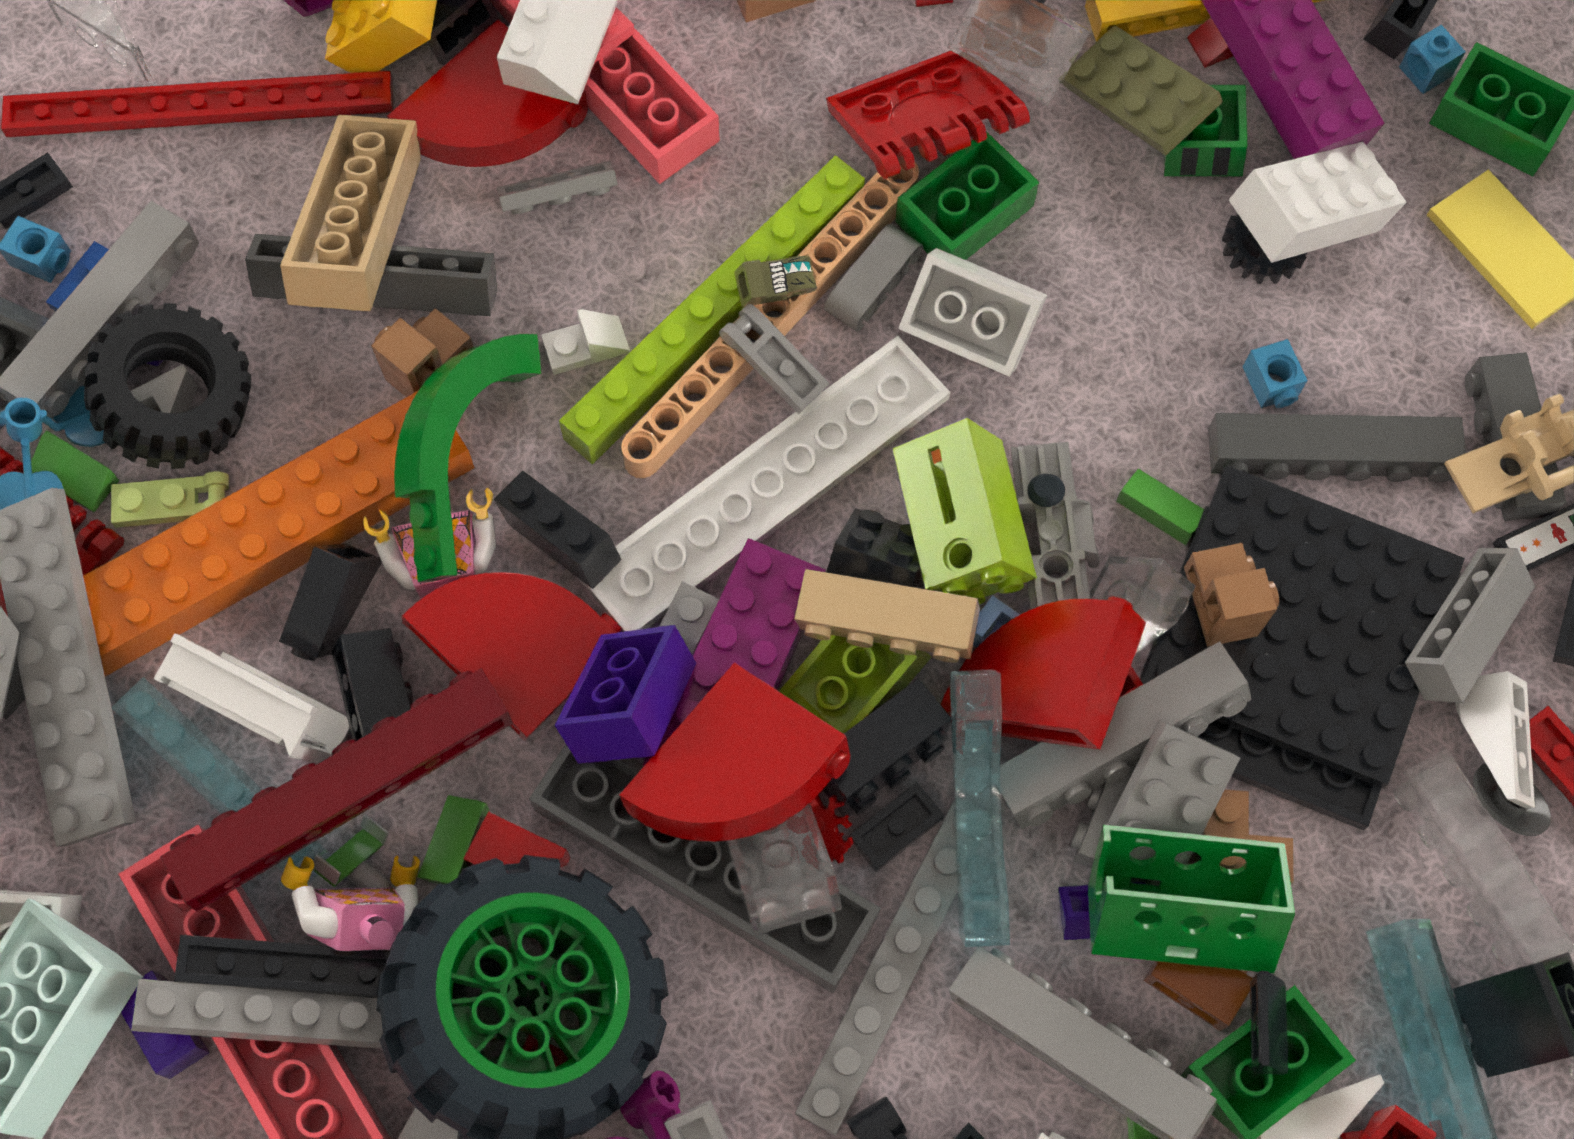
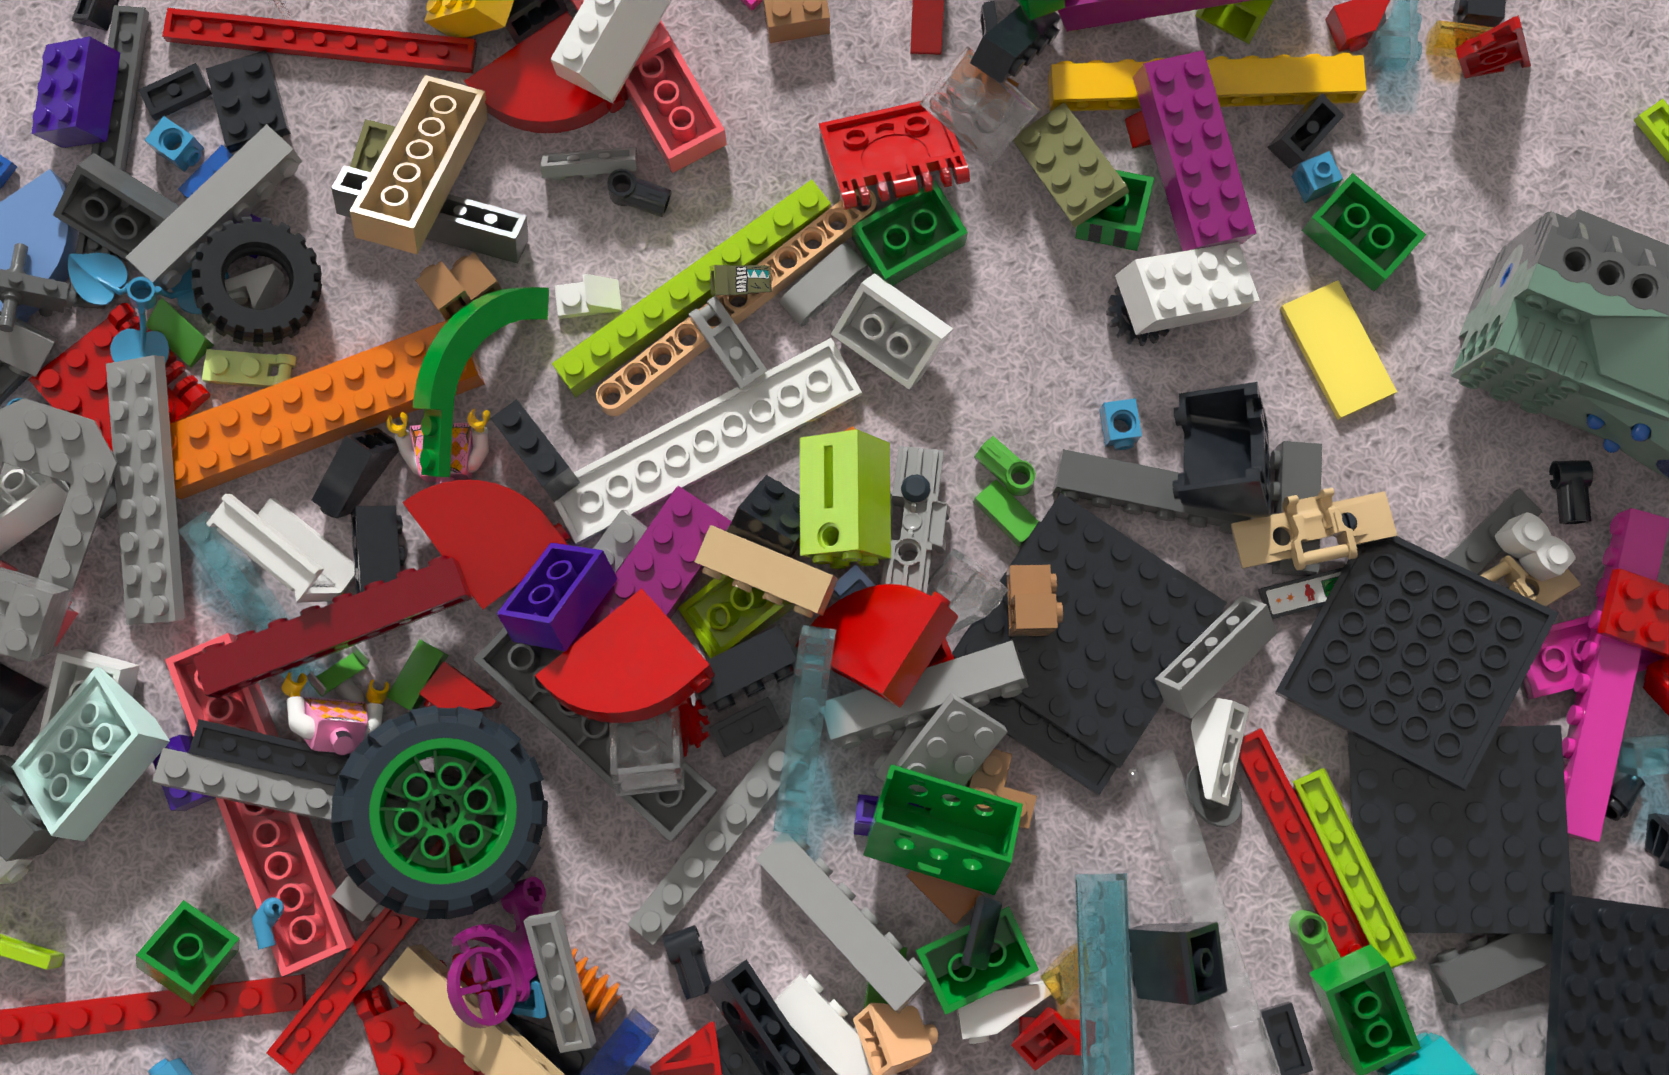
camera: 10 degrees right, 10 degrees up
(116, 182) = (247, 99): none -> black plate
(283, 207) = (371, 144): none -> olive plate
(625, 211) = (641, 194): none -> black piece
(1147, 447) = (1004, 464): none -> bright green piece
(1385, 1062) = (1063, 974): none -> clear yellow slope
(1413, 378) = (1225, 451): none -> black windscreen

